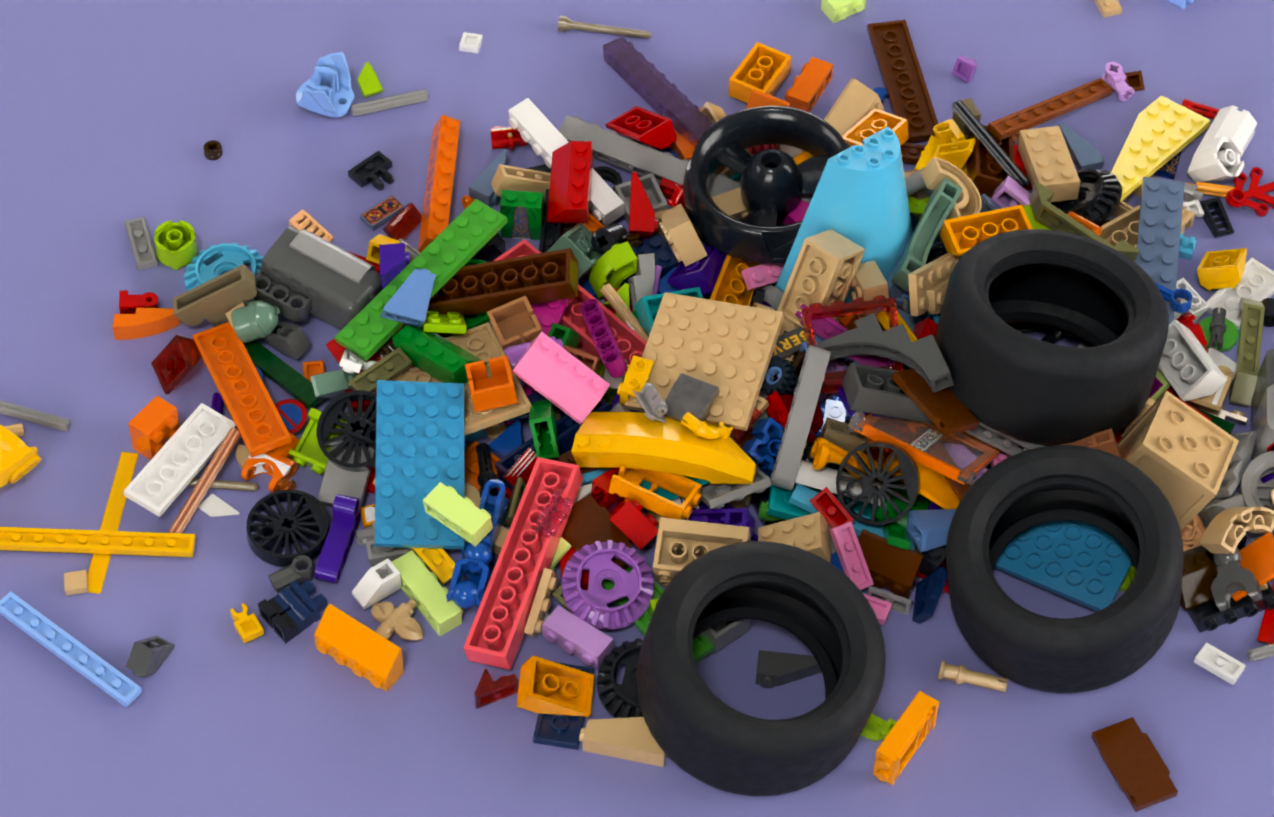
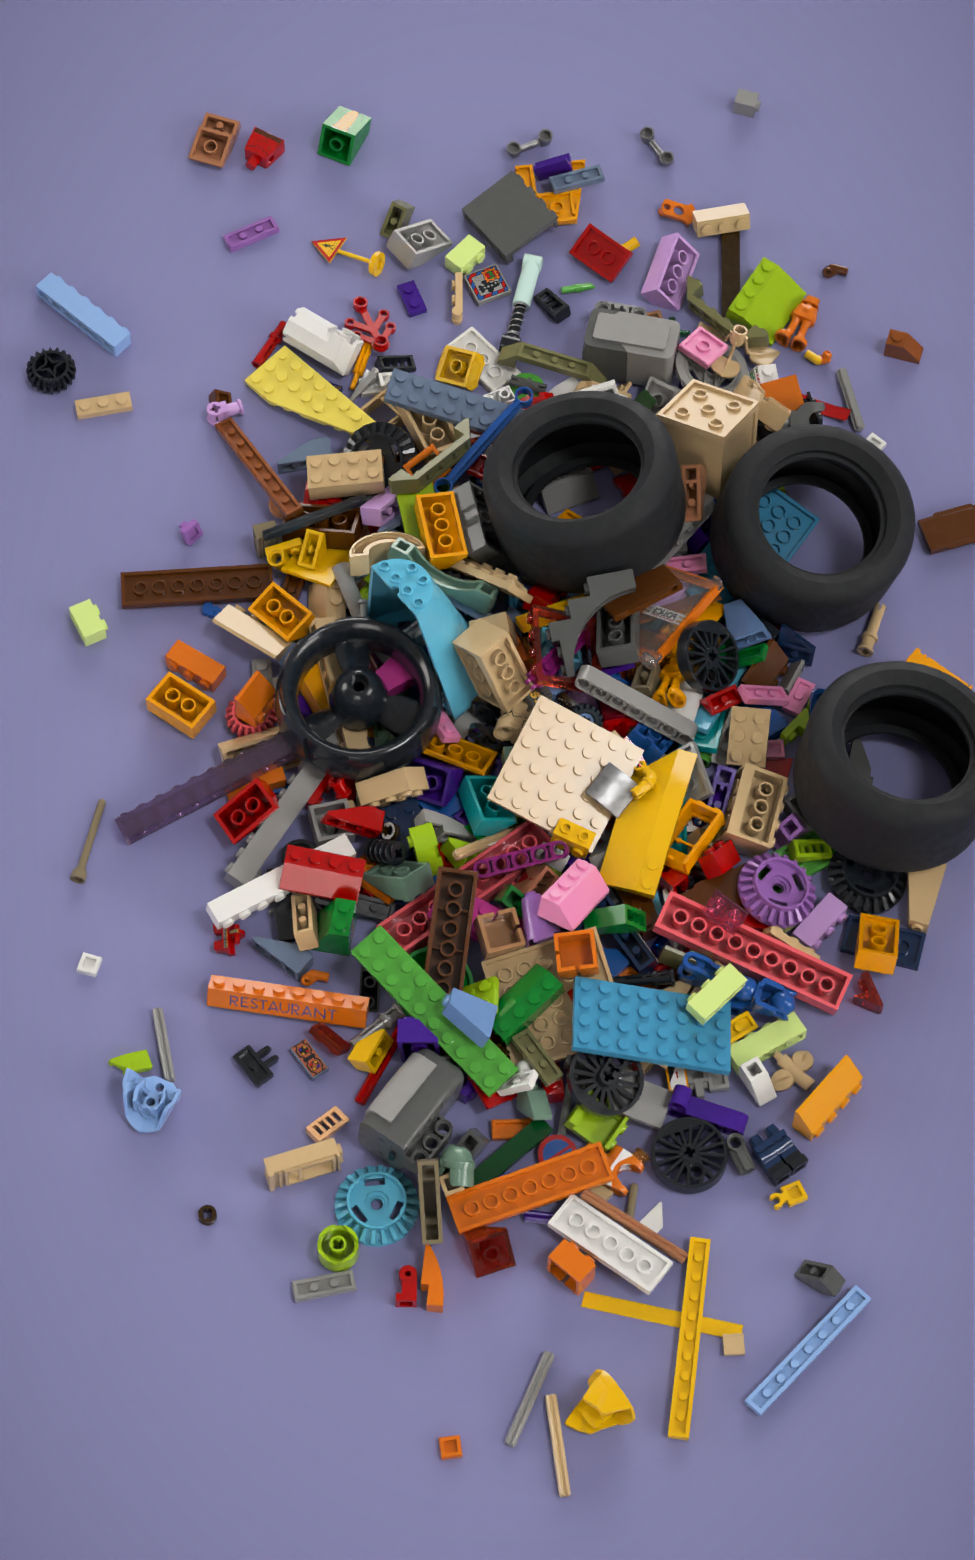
camera: 85 degrees left, 10 degrees up
(260, 205) = (303, 1163): none -> tan door
(652, 402) = (620, 819): light grey hinge -> none

